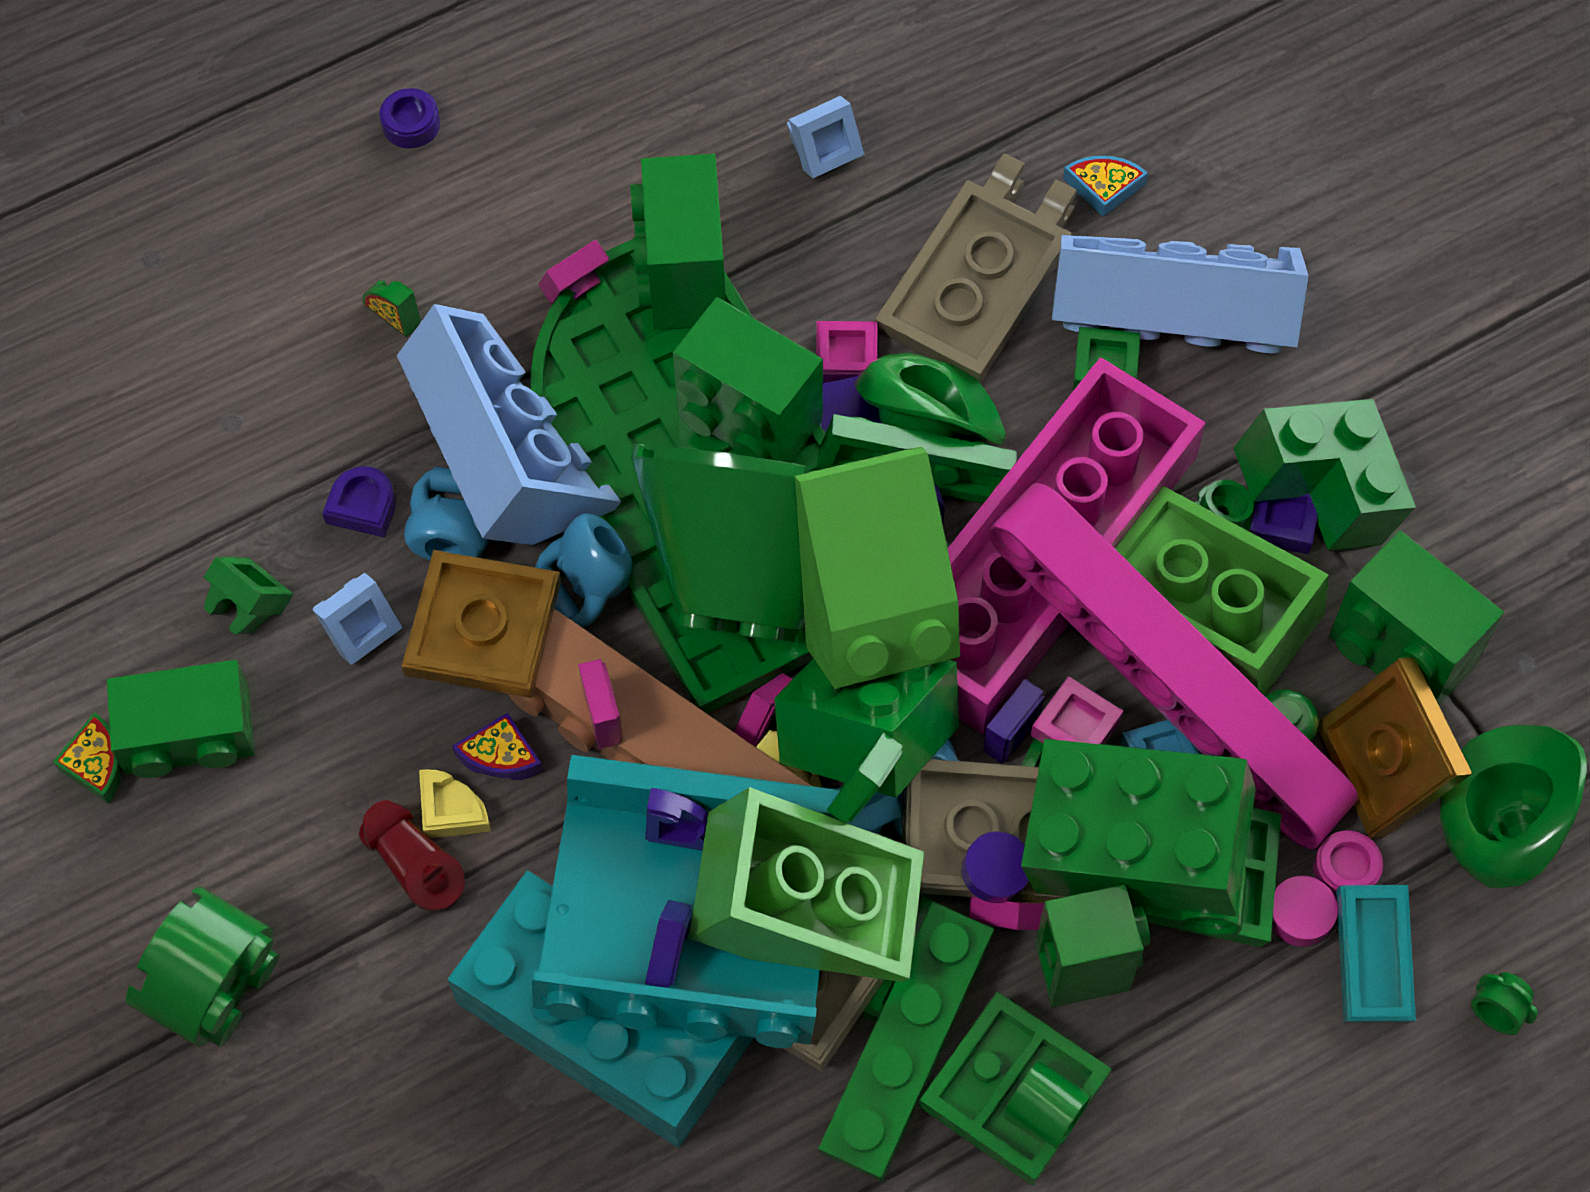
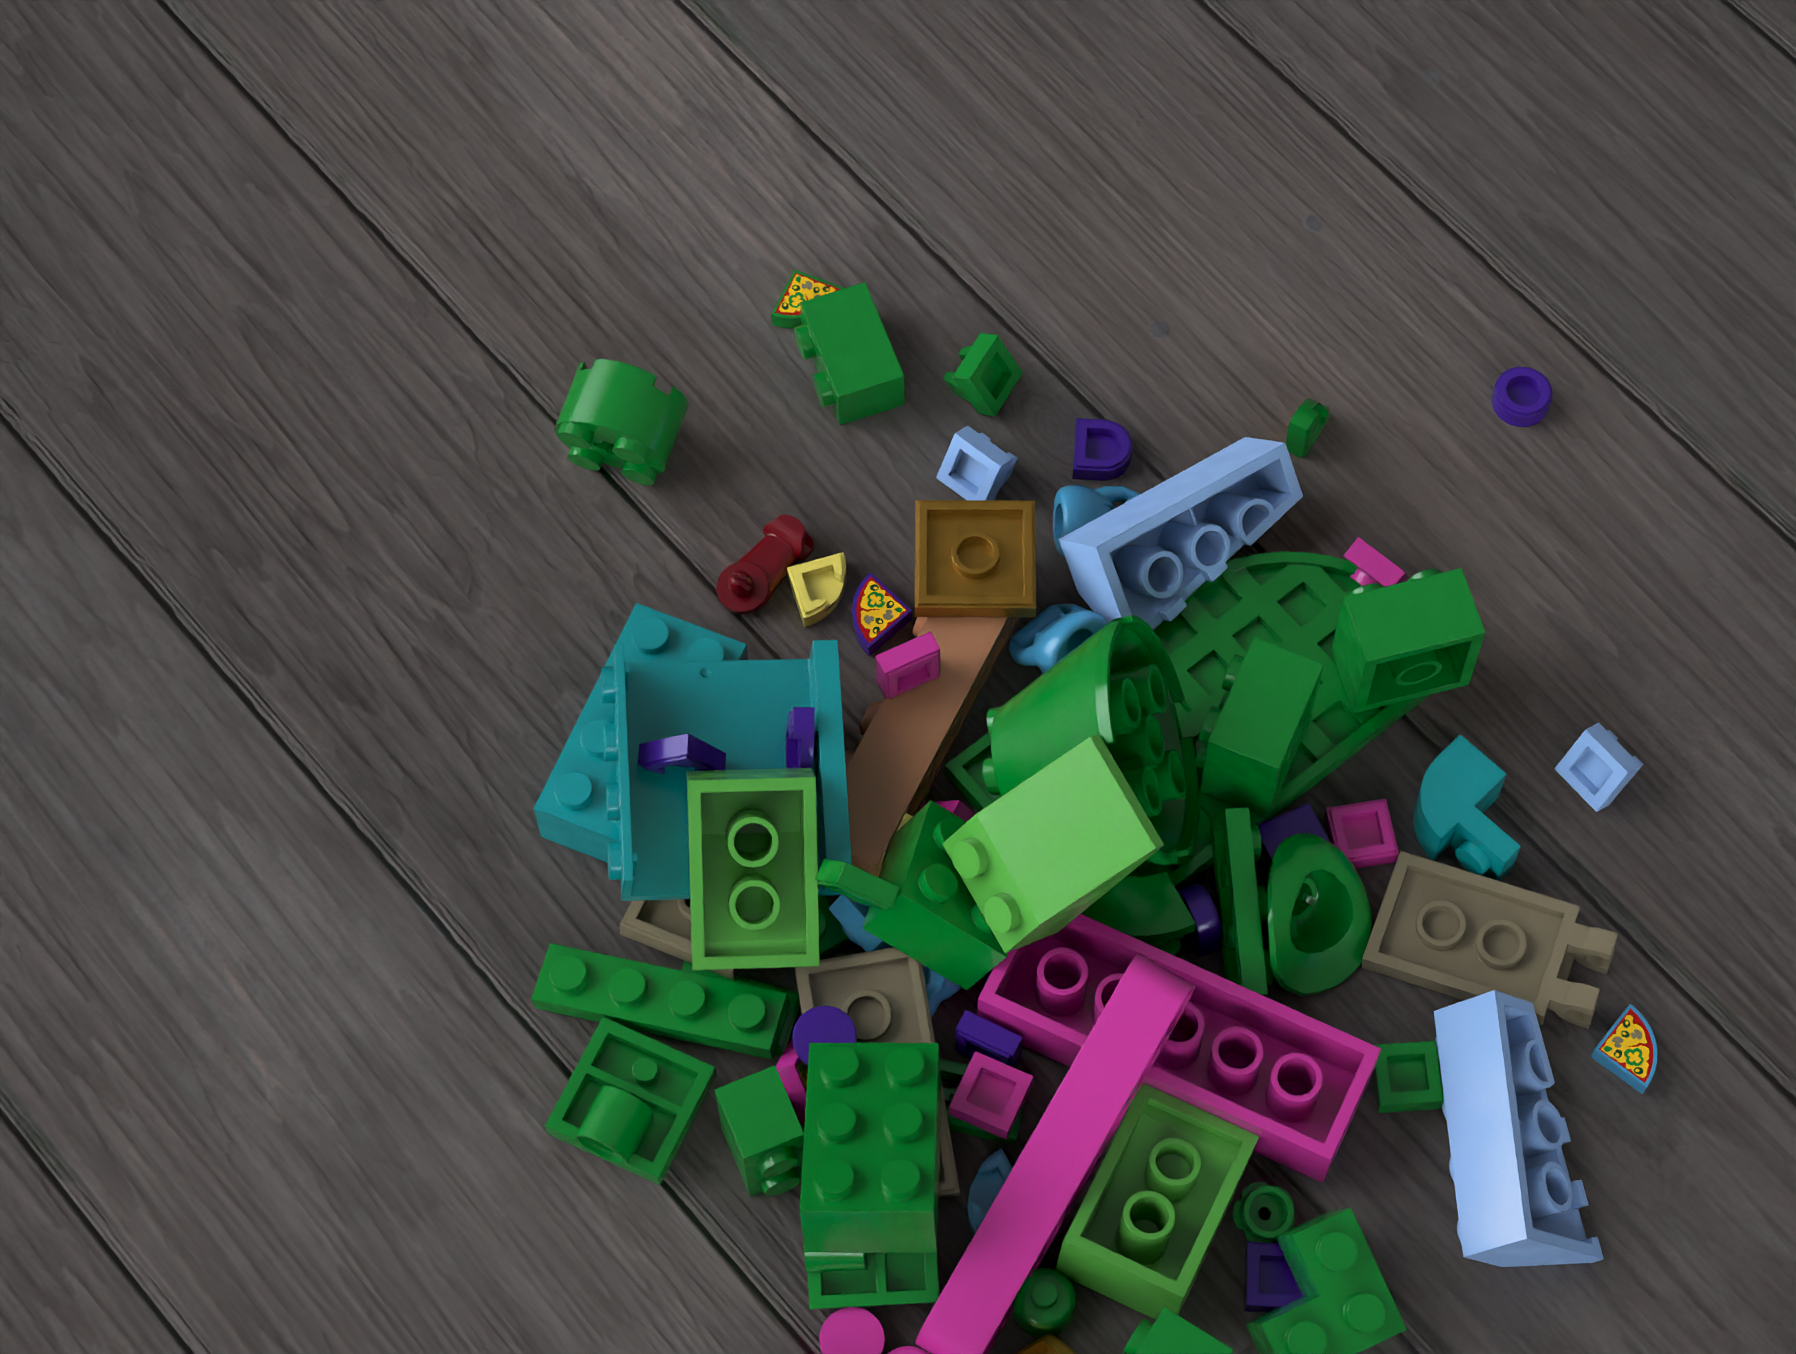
camera: 80 degrees right, 0 degrees up
(844, 268) = (1451, 810): none -> teal brick

